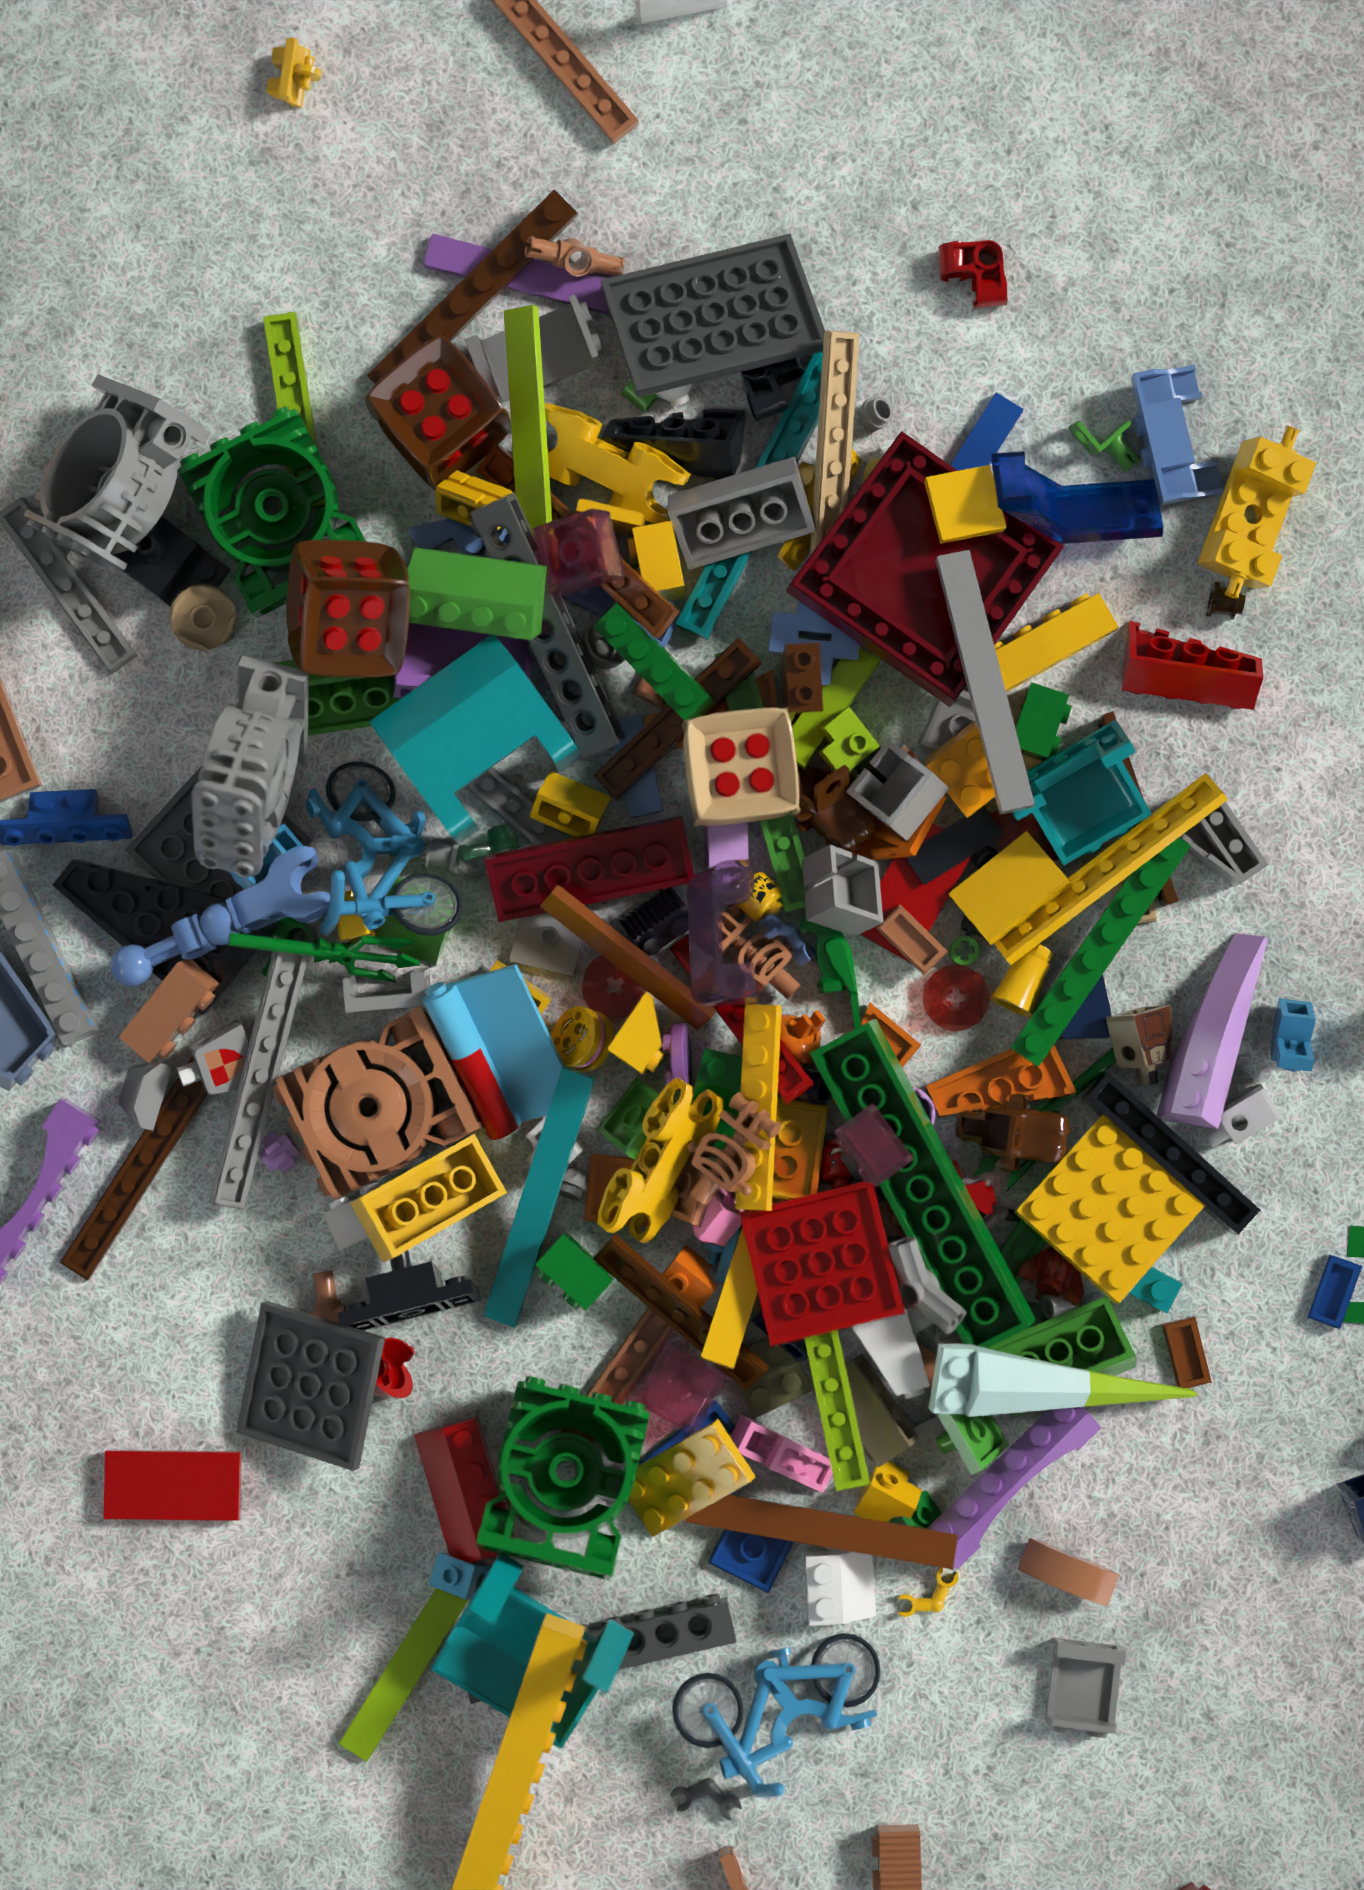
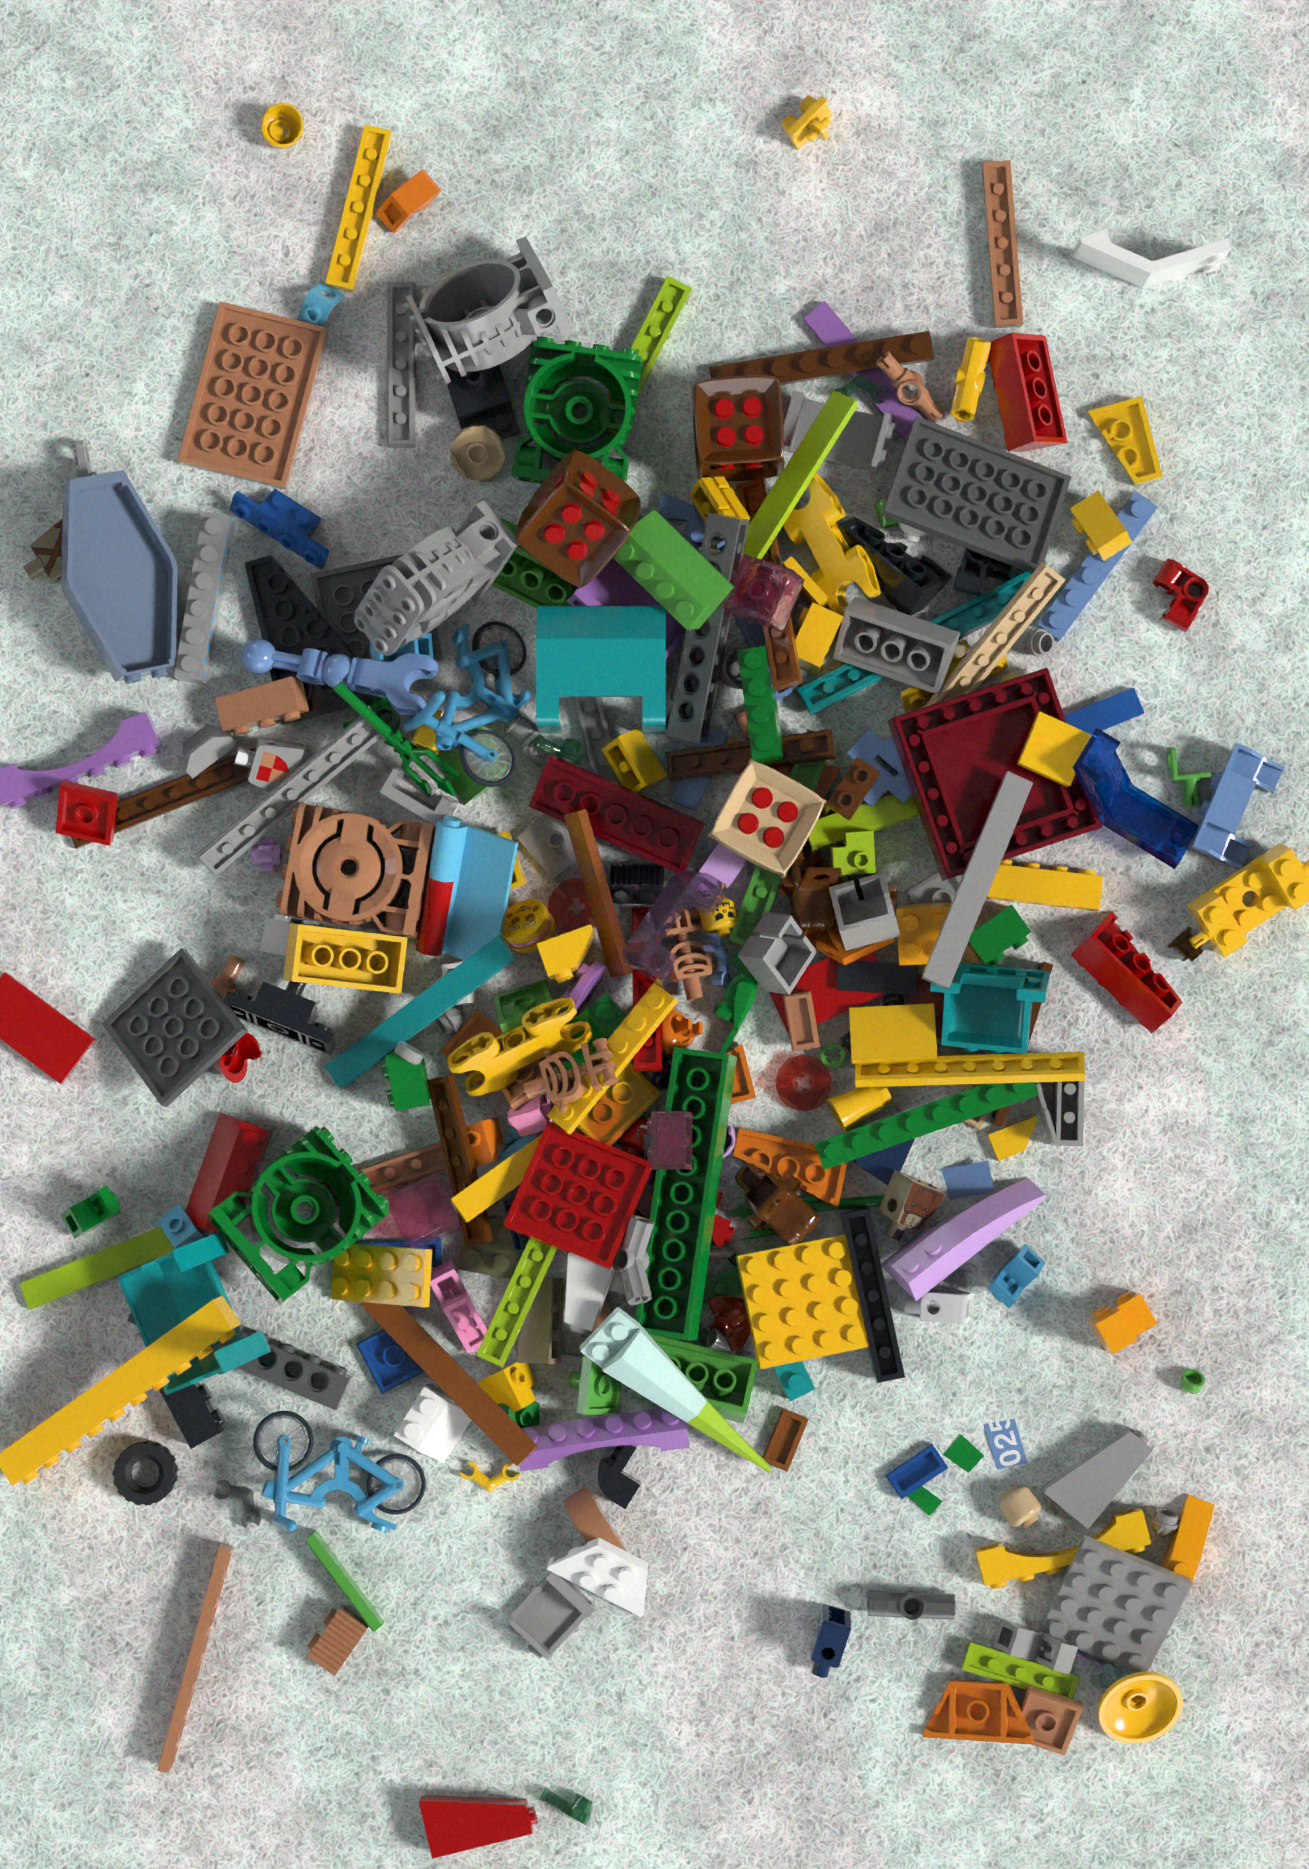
camera: 35 degrees right, 0 degrees up
(73, 1238) = (86, 812): none -> red tile
(359, 1623) = (91, 1212): none -> green brick
(523, 286) = (865, 385): none -> clear green arm
(558, 1244) = (409, 1053): none -> light grey tile
(594, 1864) = (123, 1473): none -> black tyre
(602, 1745) = (194, 1413): none -> black brick
(626, 208) = (970, 379): none -> yellow piece
(688, 183) = (1026, 392): none -> red slope
(819, 157) = (1130, 438): none -> yellow wing
(853, 259) = (1100, 525): none -> yellow brick
(864, 1801) = (344, 1581): none -> bright green tile
(876, 301) = (1094, 571): none -> medium blue plate
(1054, 1513) = (613, 1481): none -> black brick
(1111, 1608) = (606, 1572): none -> white wing
(1180, 976) = (968, 1179): none -> medium blue sticker
(1193, 906) = (1012, 1139): none -> yellow tile
(1246, 1855) = (577, 1807): none -> clear green bar

